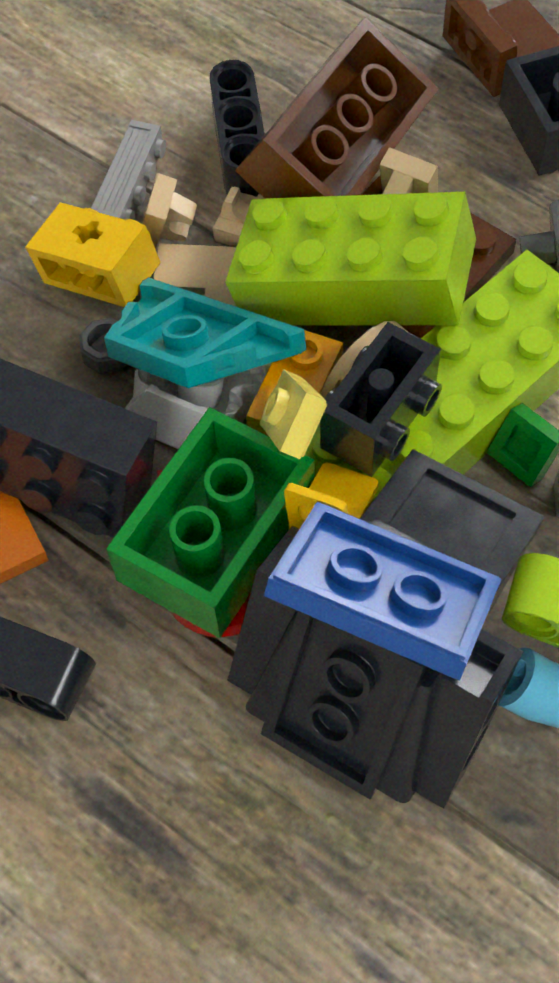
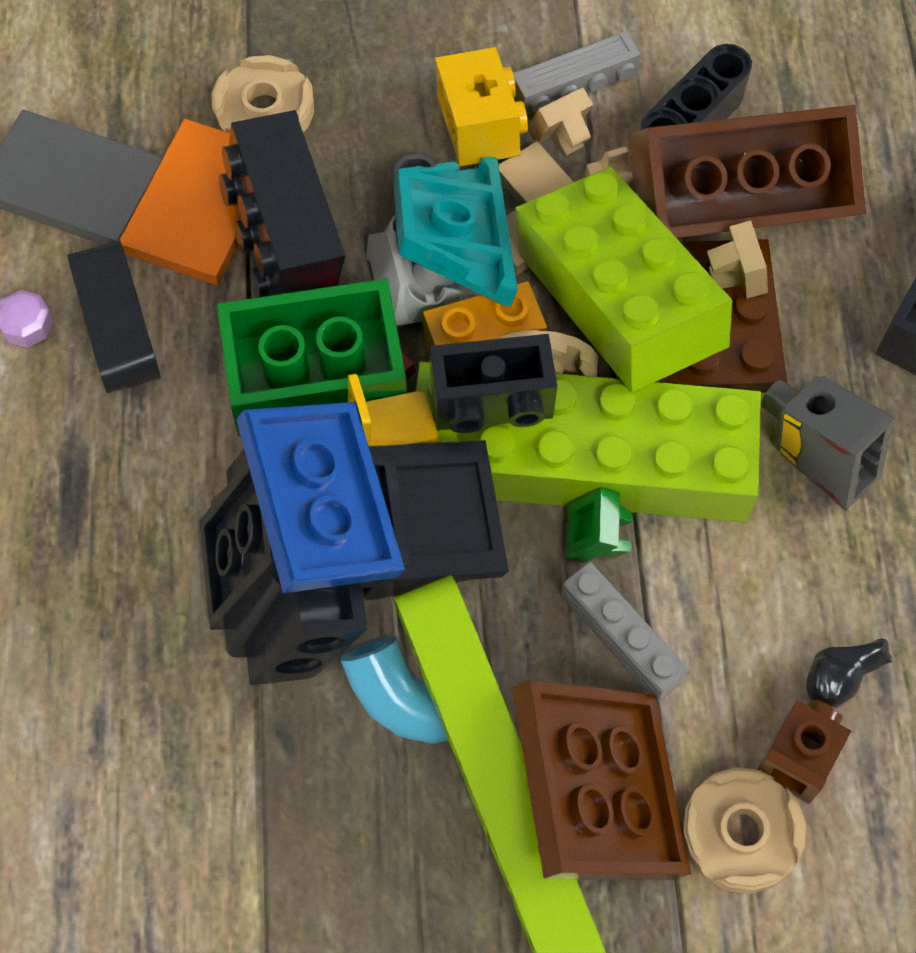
camera: 45 degrees right, 5 degrees up
(292, 414) = (422, 331): light yellow plate -> none

